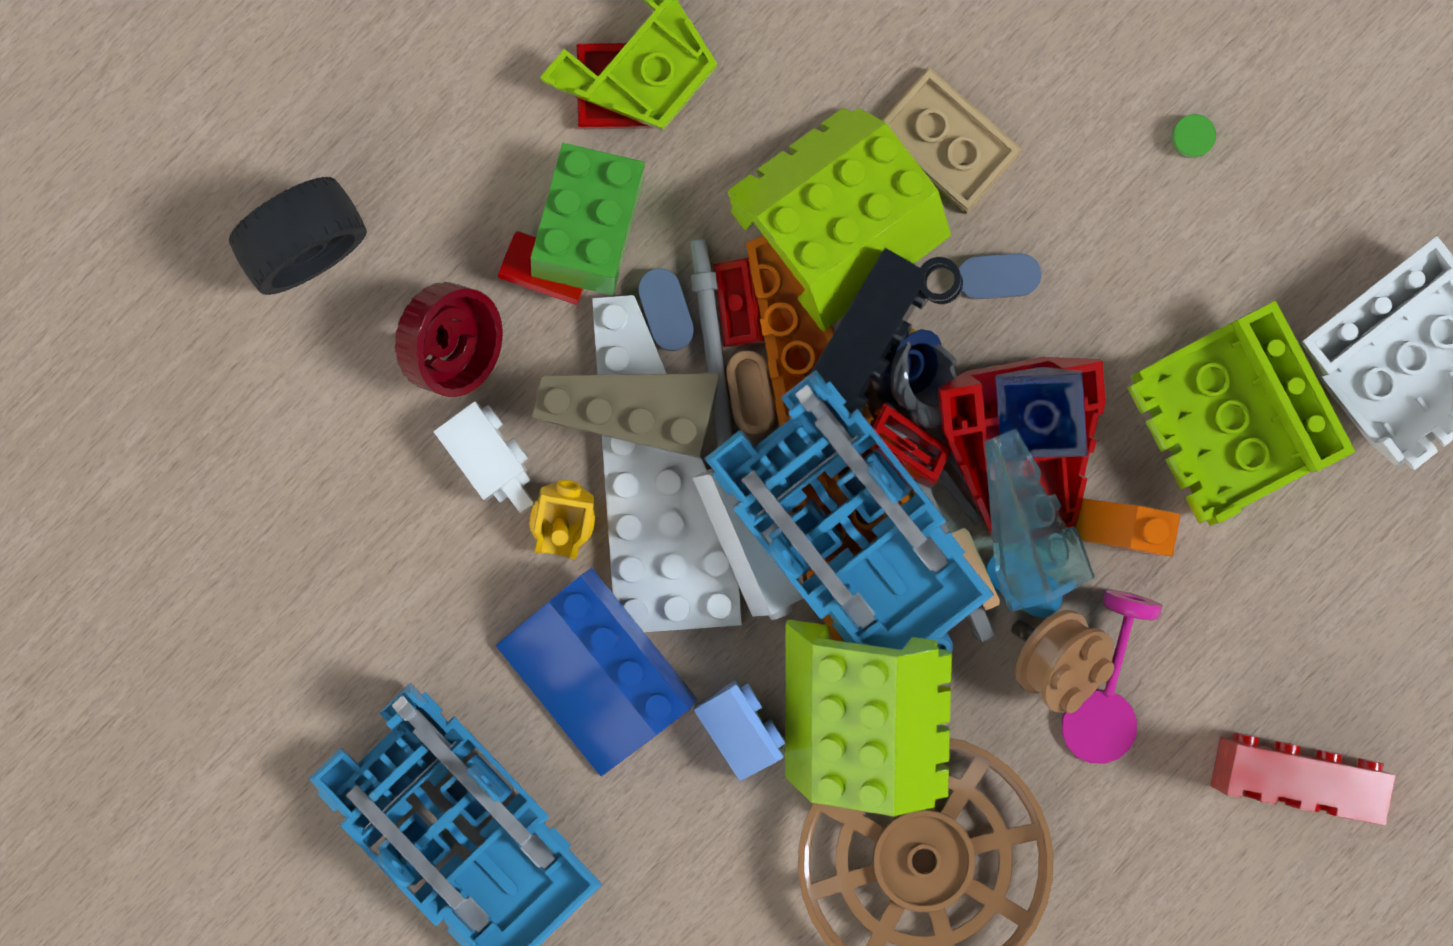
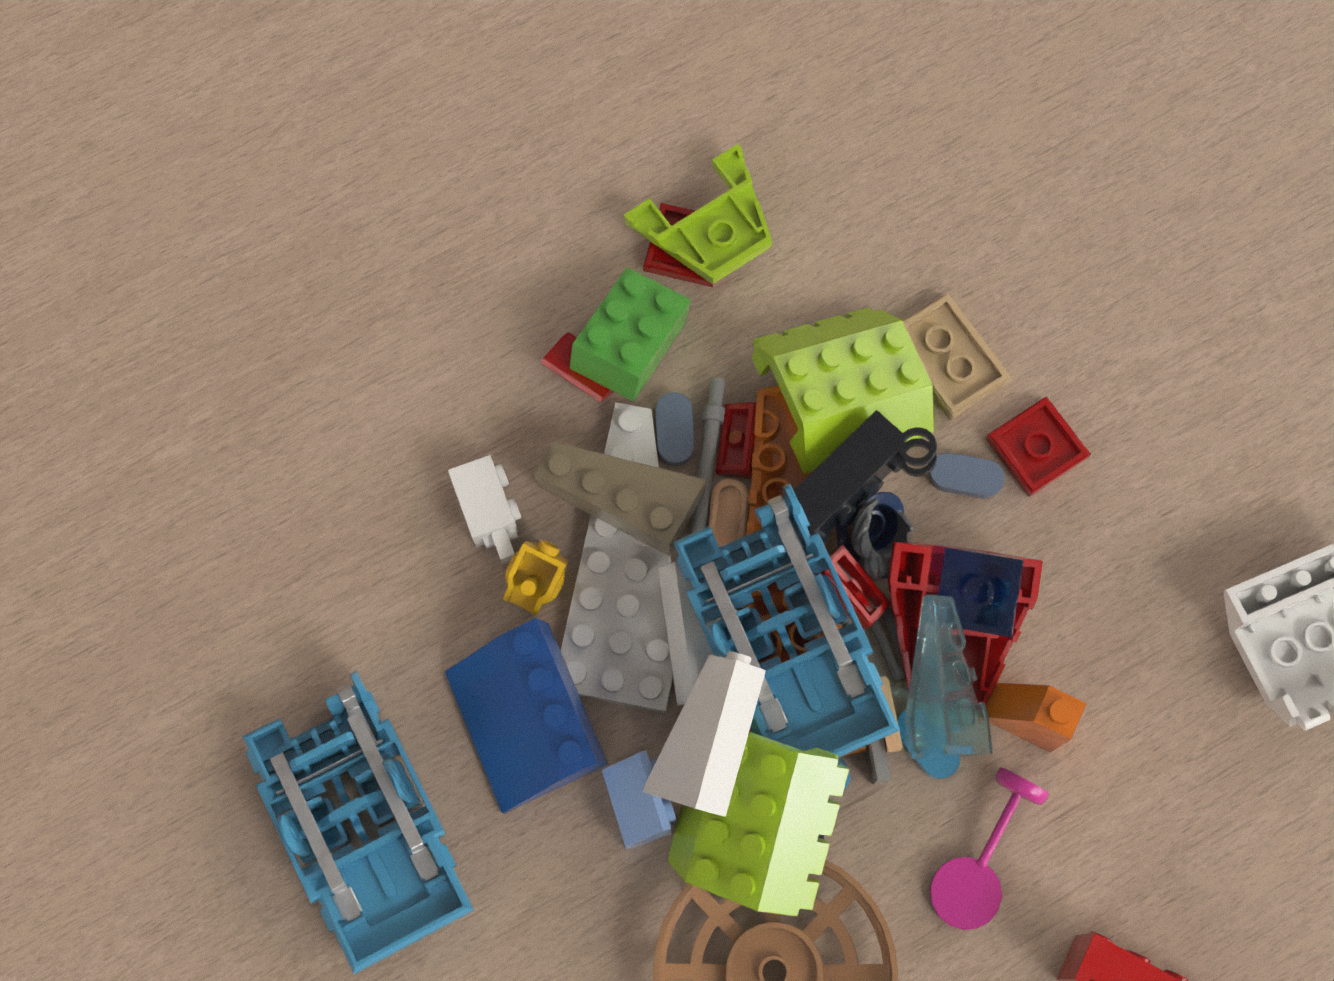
camera: 15 degrees right, 15 degrees down
(297, 235) = (385, 280): black wheel -> none
(432, 328) = (468, 385): dark red piece -> none
(800, 664) = (709, 736): none -> white slope
(1063, 660) = (948, 816): medium nougat wheel -> none
(1069, 220) = (1038, 446): none -> red tile
(1193, 136) = (1160, 405): bright green tile -> none
(1239, 414) = (1156, 643): lime slope -> none

